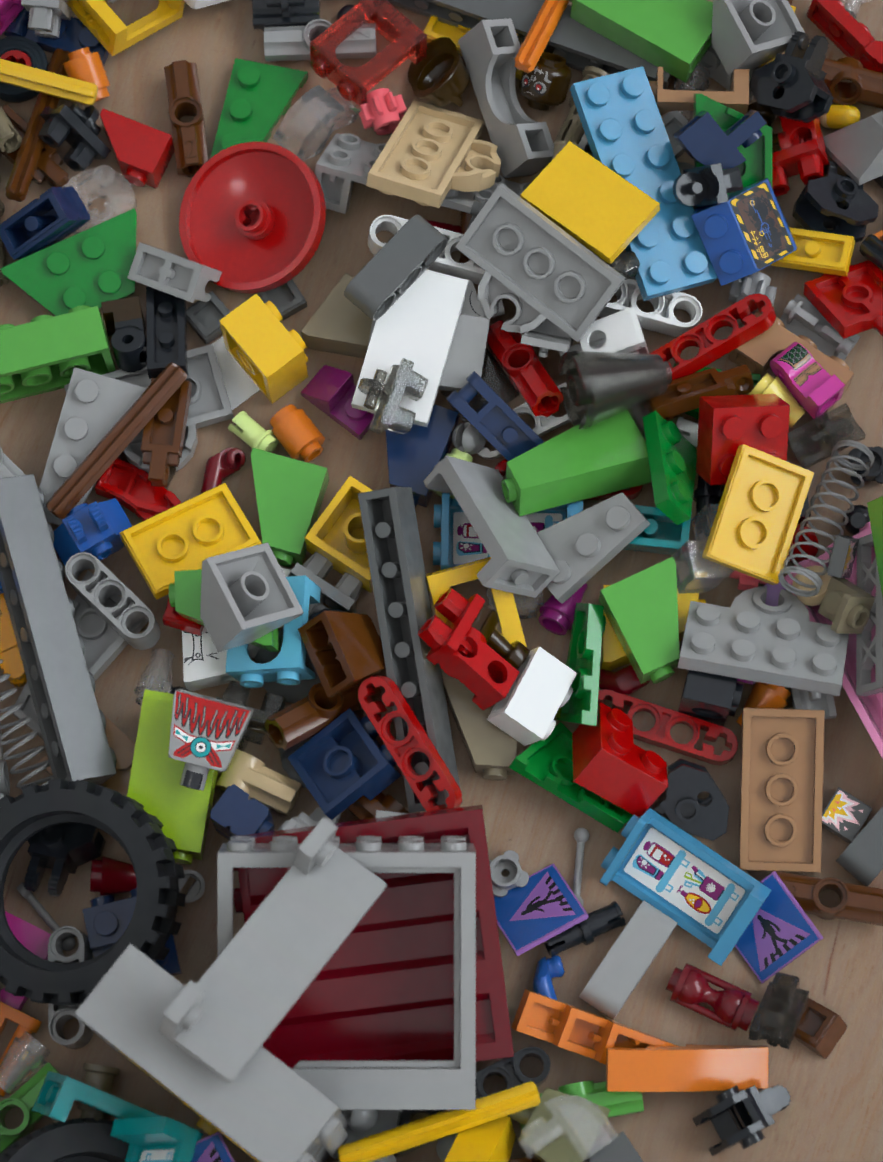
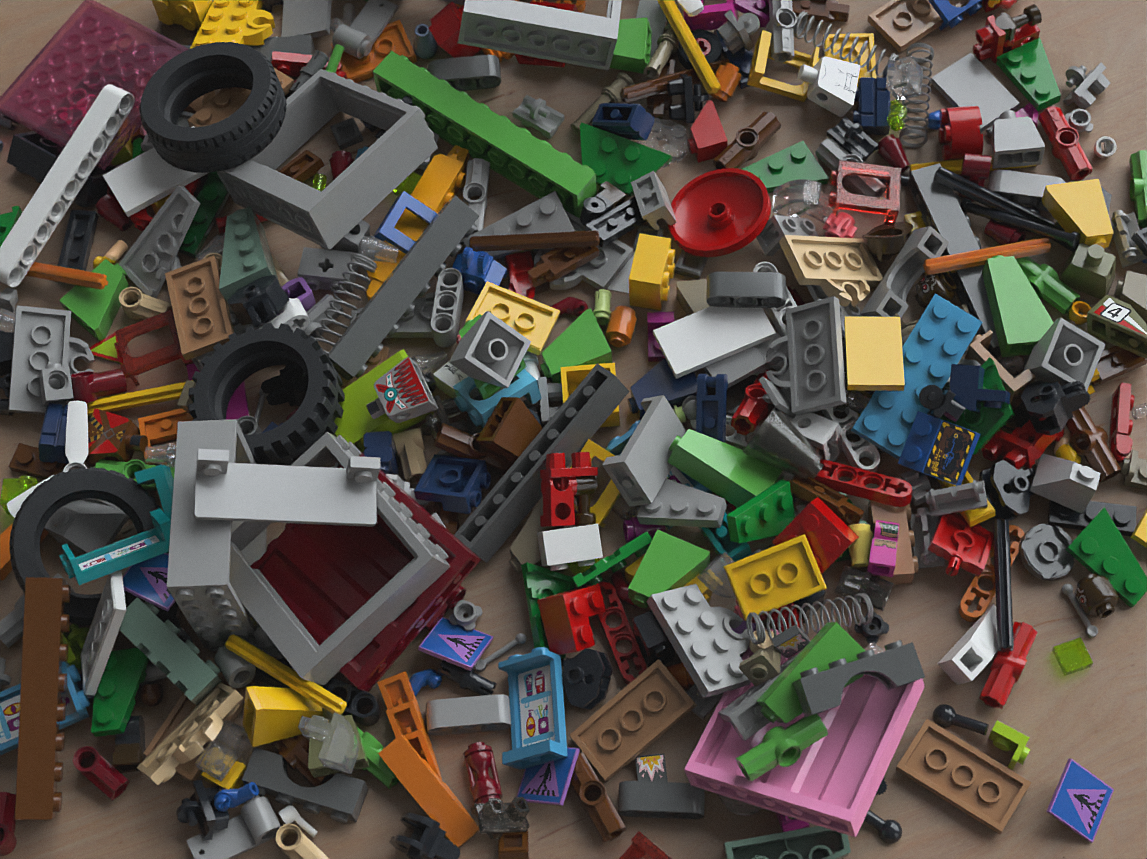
camera: 55 degrees right, 10 degrees down
(399, 383) = (660, 349): clear smoke hips -> none
(415, 741) = (489, 502): red beam -> none
(811, 261) = (956, 498): none -> light grey hinge

